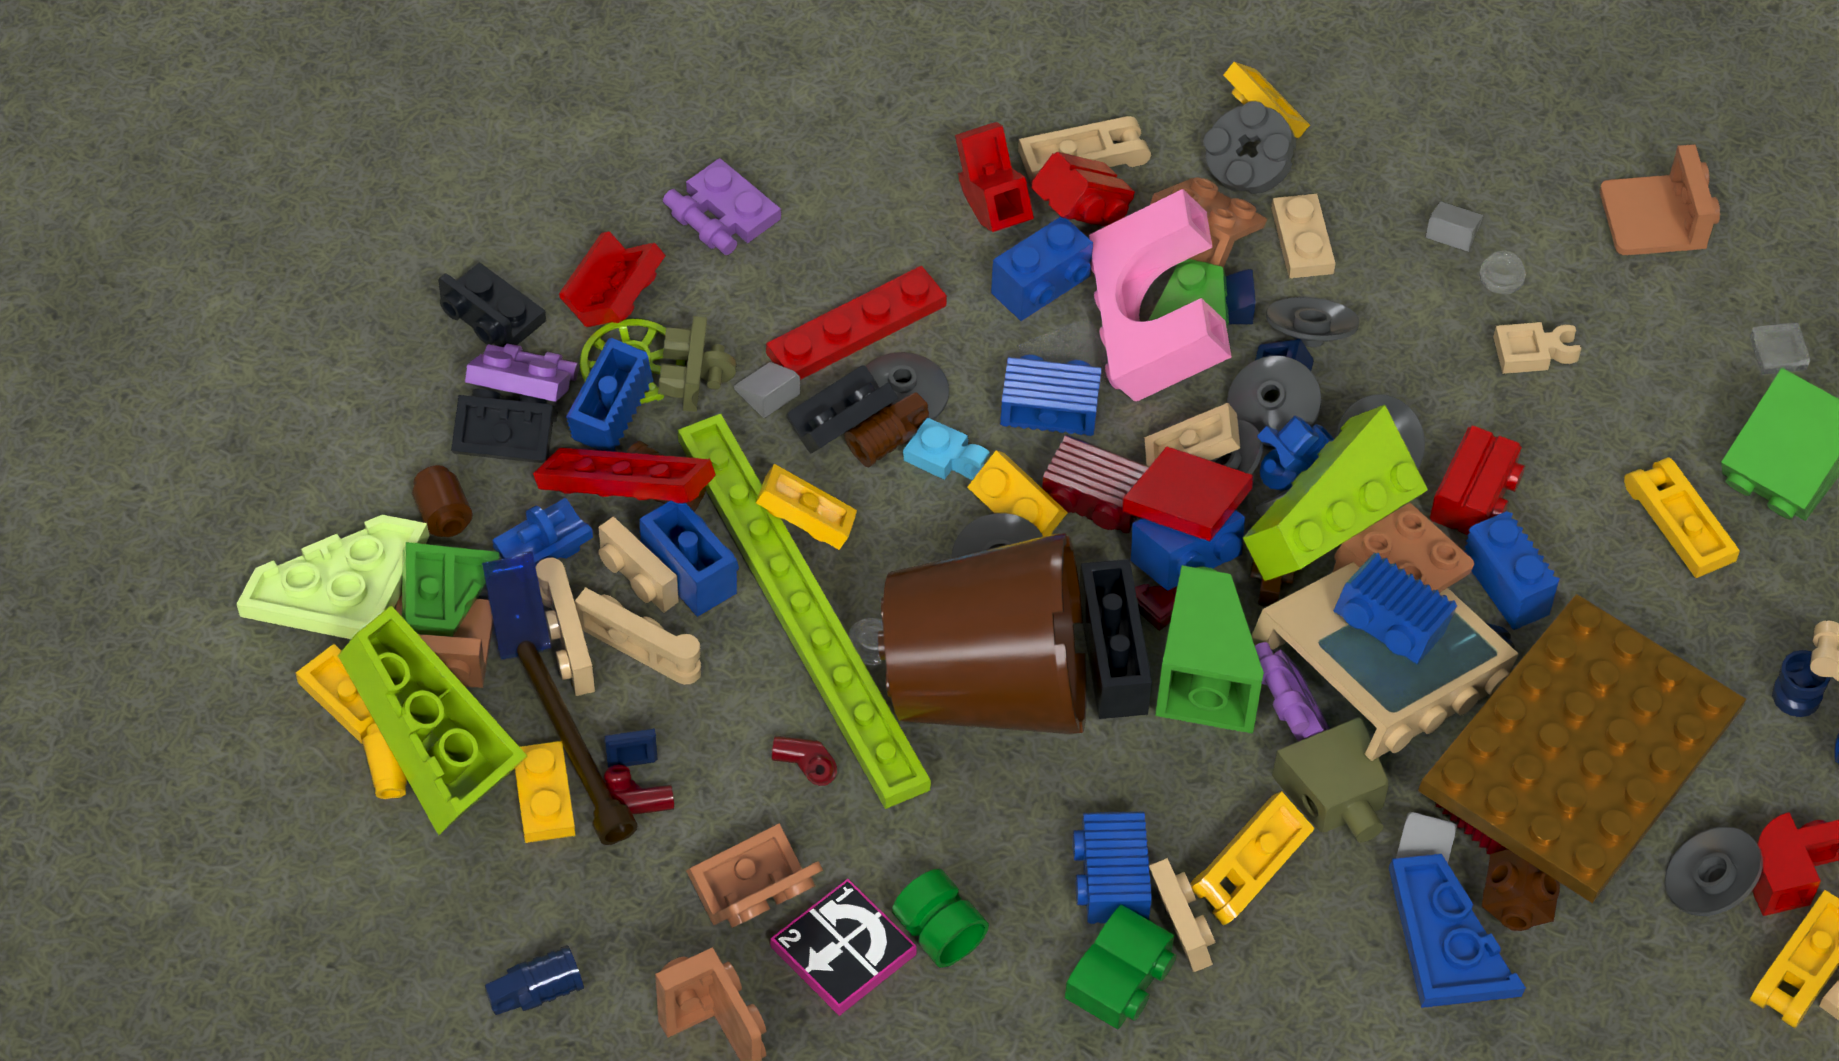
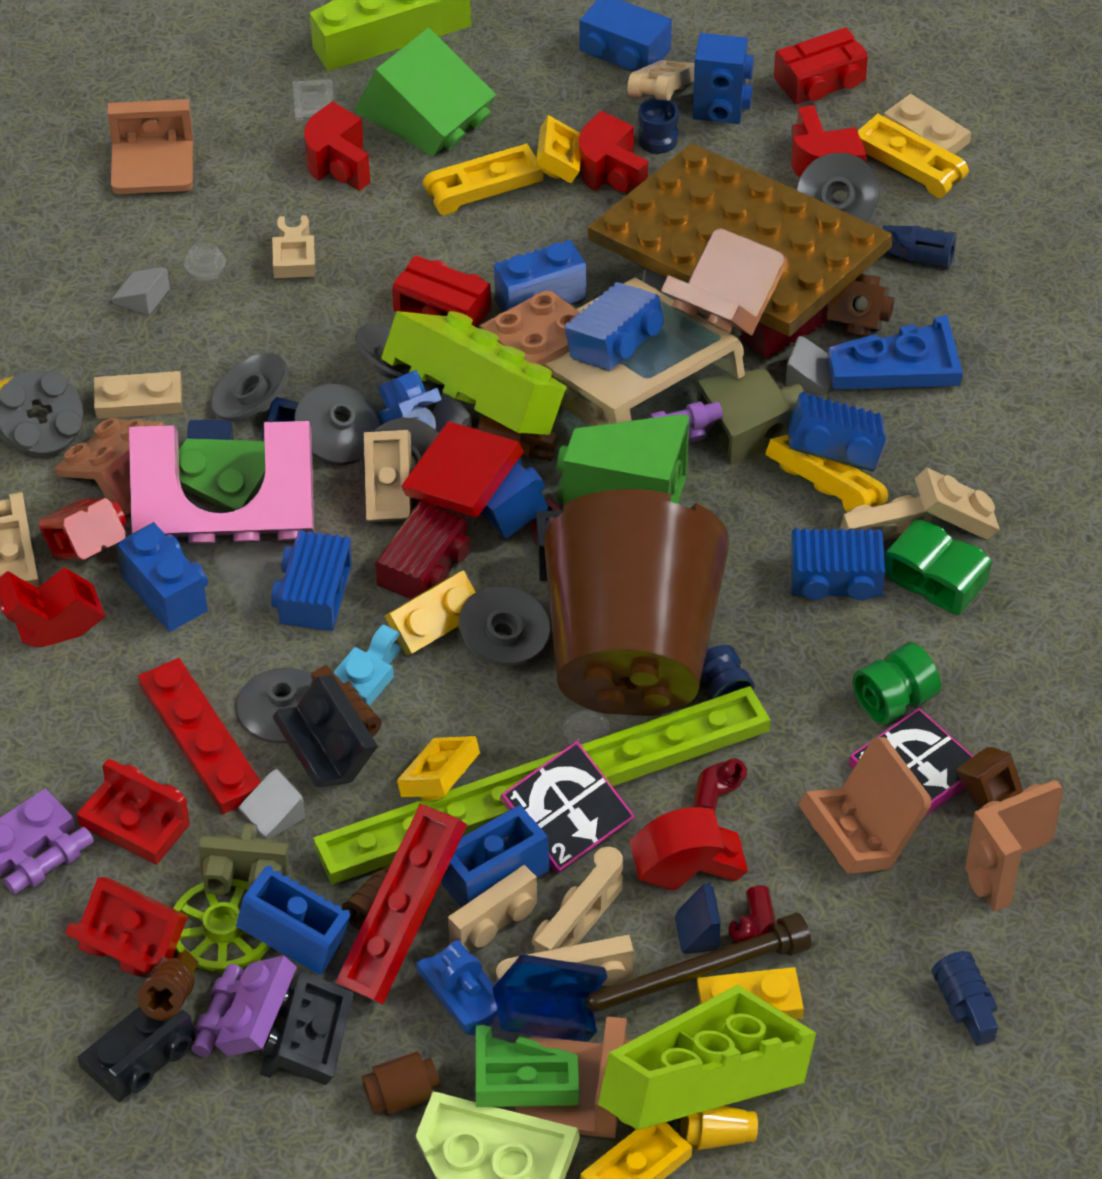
camera: 85 degrees left, 5 degrees down
(543, 312) = (168, 986): none -> reddish brown hinge
(710, 729) = (682, 844): none -> red brick
(748, 277) = (135, 812): none -> red bracket
(761, 618) = (570, 805): none -> tile
(819, 1012) = (990, 776): none -> reddish brown slope
(947, 757) = (723, 672): none -> dark blue wheel
(1205, 981) = (957, 503): none -> tan plate
(1300, 857) = (836, 432): none -> blue brick
(1448, 711) = (729, 282): none -> bracket
(1646, 966) = (908, 243): none -> dark blue hinge
(1702, 362) = (335, 146): none -> red brick
(1732, 580) = (558, 150): none -> yellow plate
(1740, 626) = (609, 155): none -> red brick

